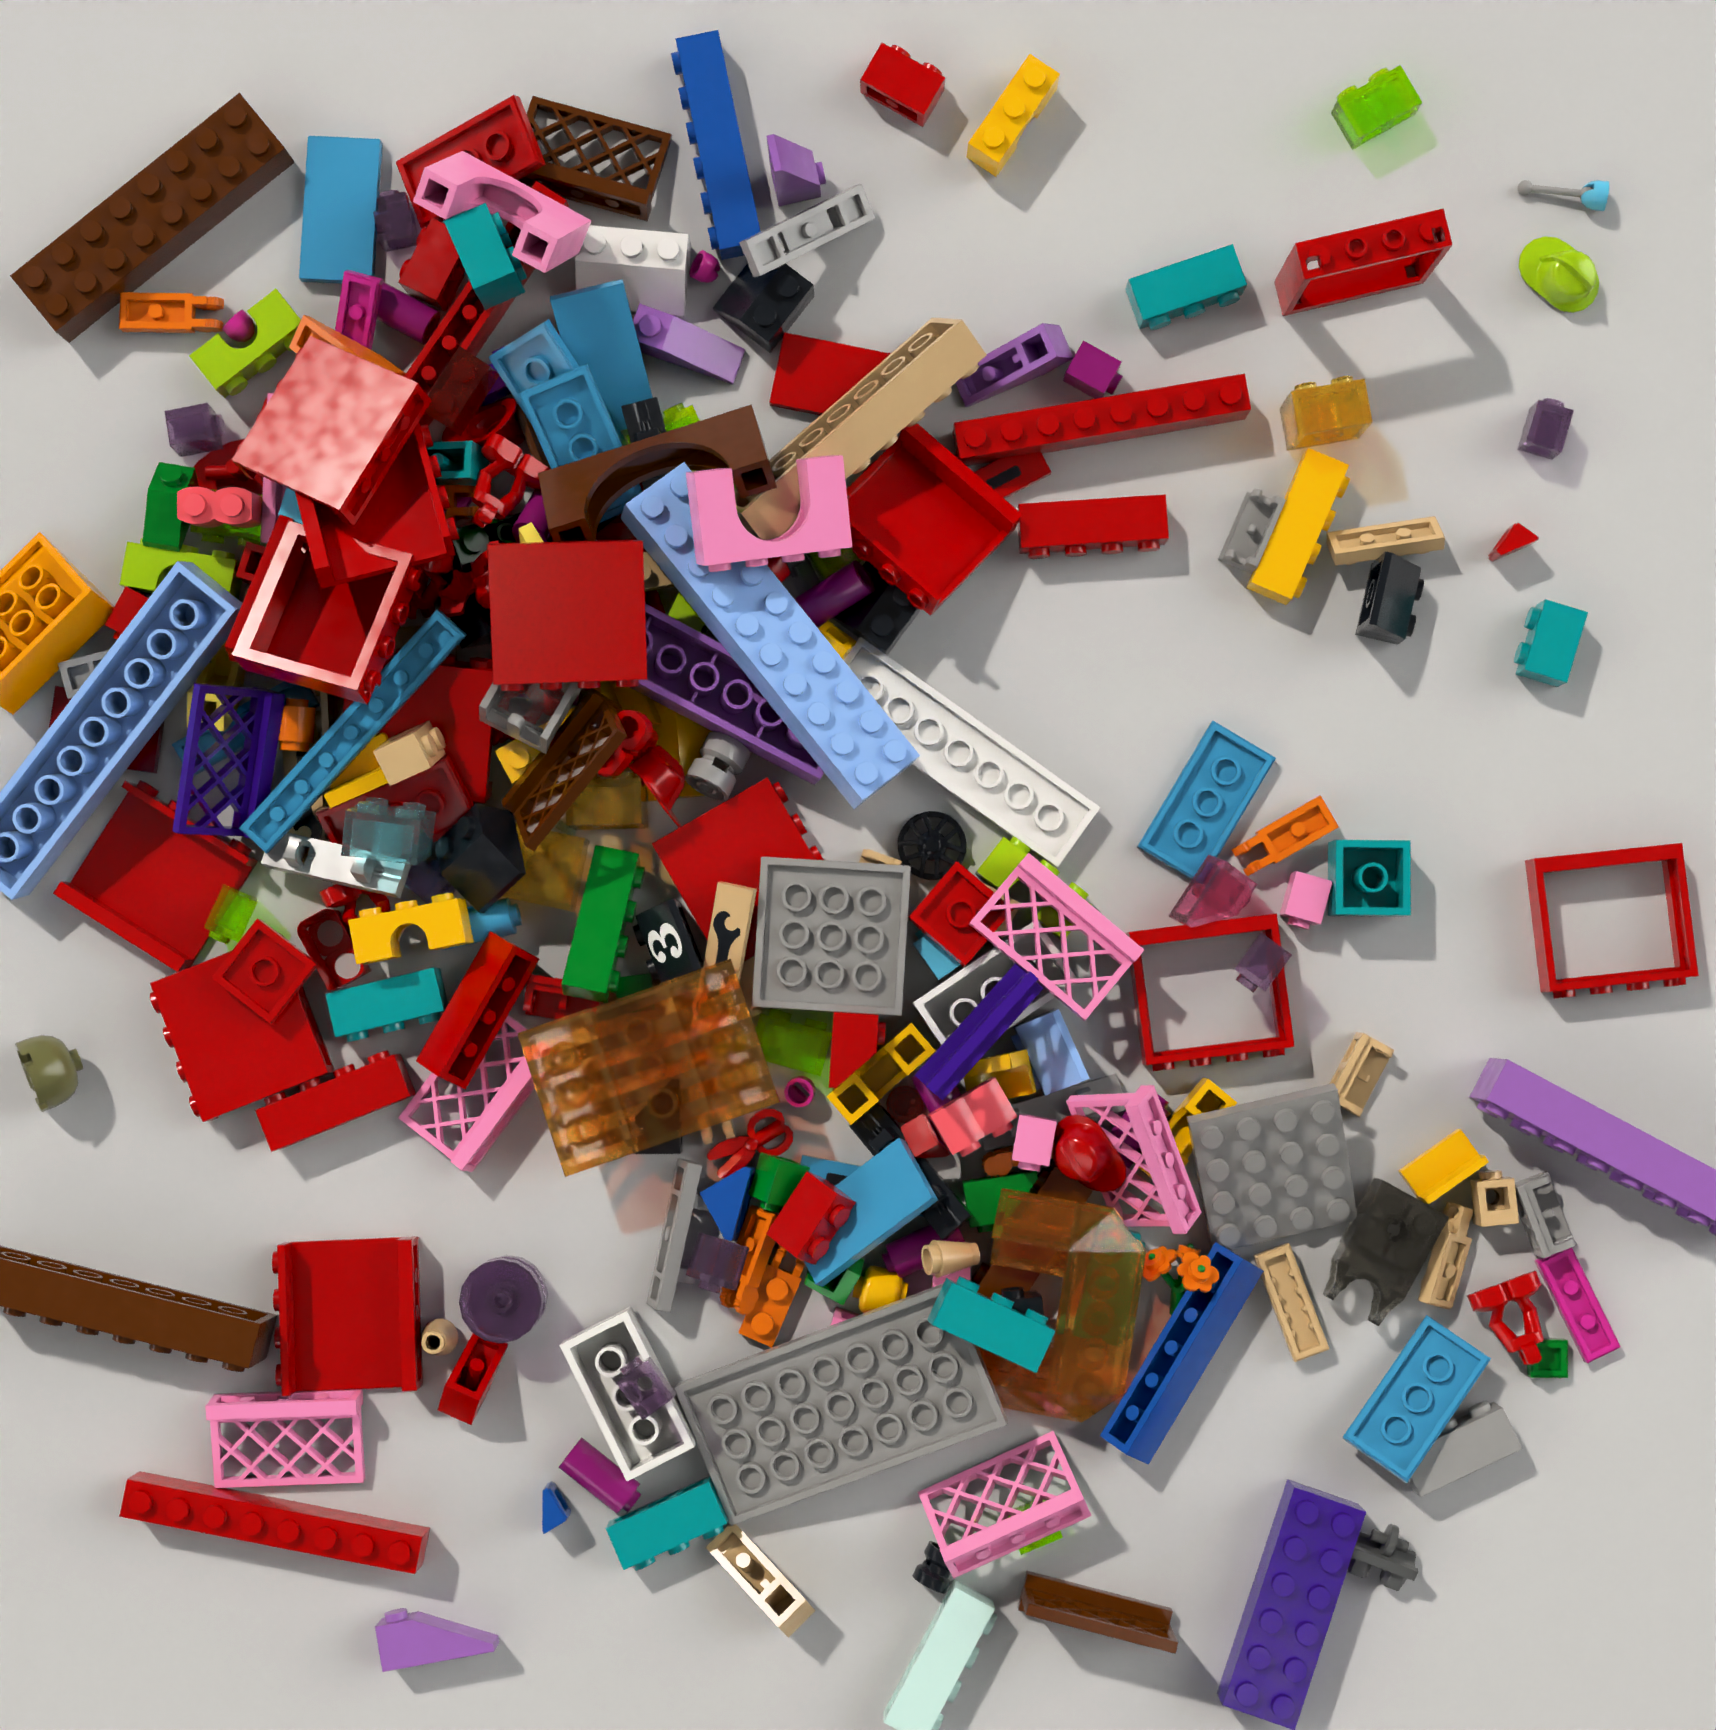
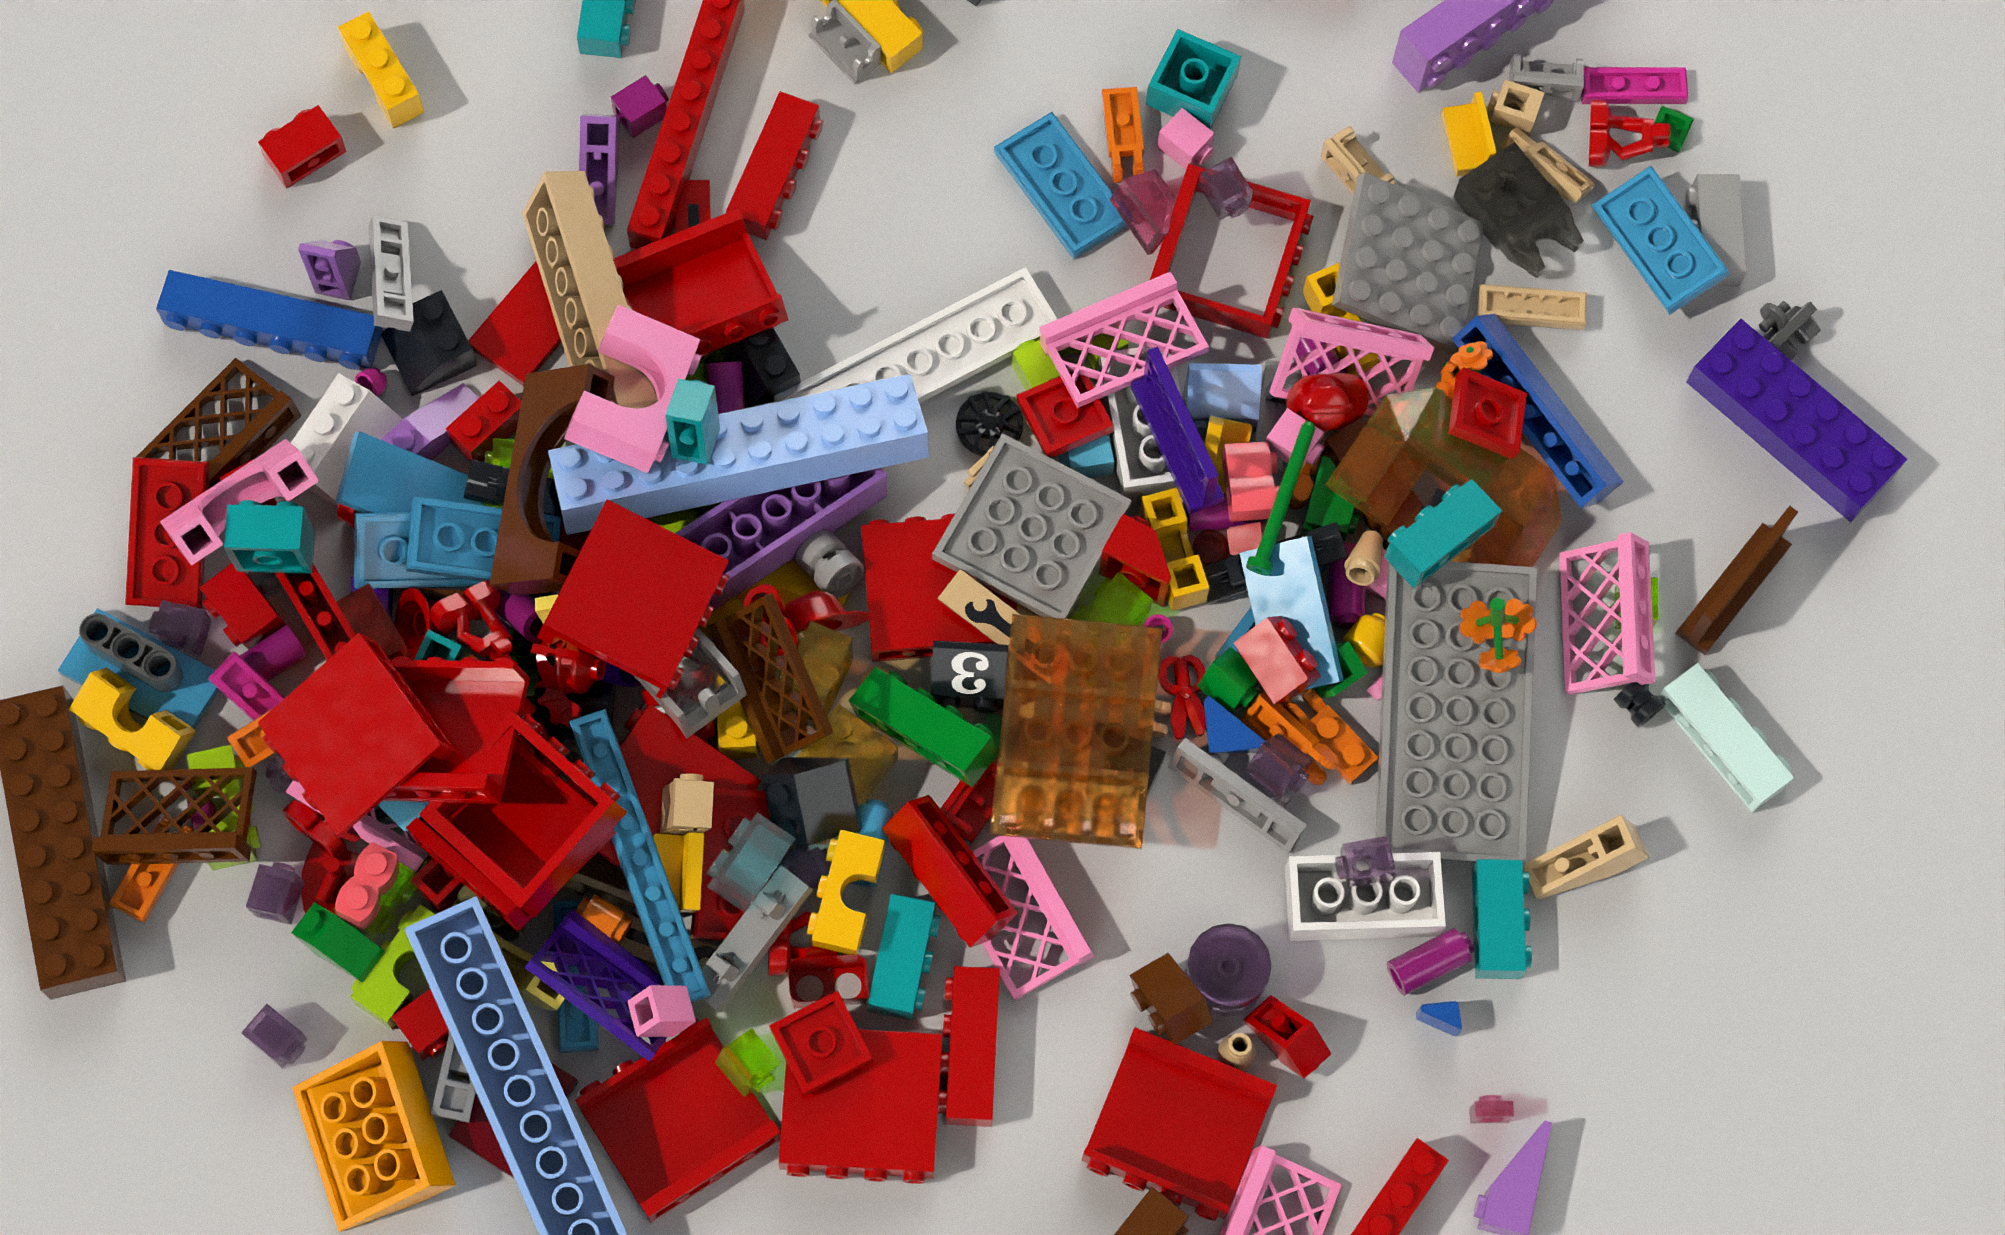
camera: 75 degrees left, 15 degrees down
(71, 495) = (275, 1036): none -> clear purple brick
(188, 327) = (166, 845): none -> reddish brown fence
(219, 820) = (661, 1011): none -> bright pink brick
(286, 197) = (105, 707): none -> yellow arch
(338, 175) = (120, 639): none -> dark grey beam
(450, 1261) = (1170, 999): none -> reddish brown brick
(487, 1589) = (1491, 1110): none -> clear pink plate
(708, 388) = (487, 418): none -> red brick
(757, 581) = (692, 421): none -> teal brick
(924, 1396) = (1499, 622): none -> orange plant
(961, 1157) = (1260, 562): none -> green bar
(1141, 1313) = (1487, 413): none -> red plate

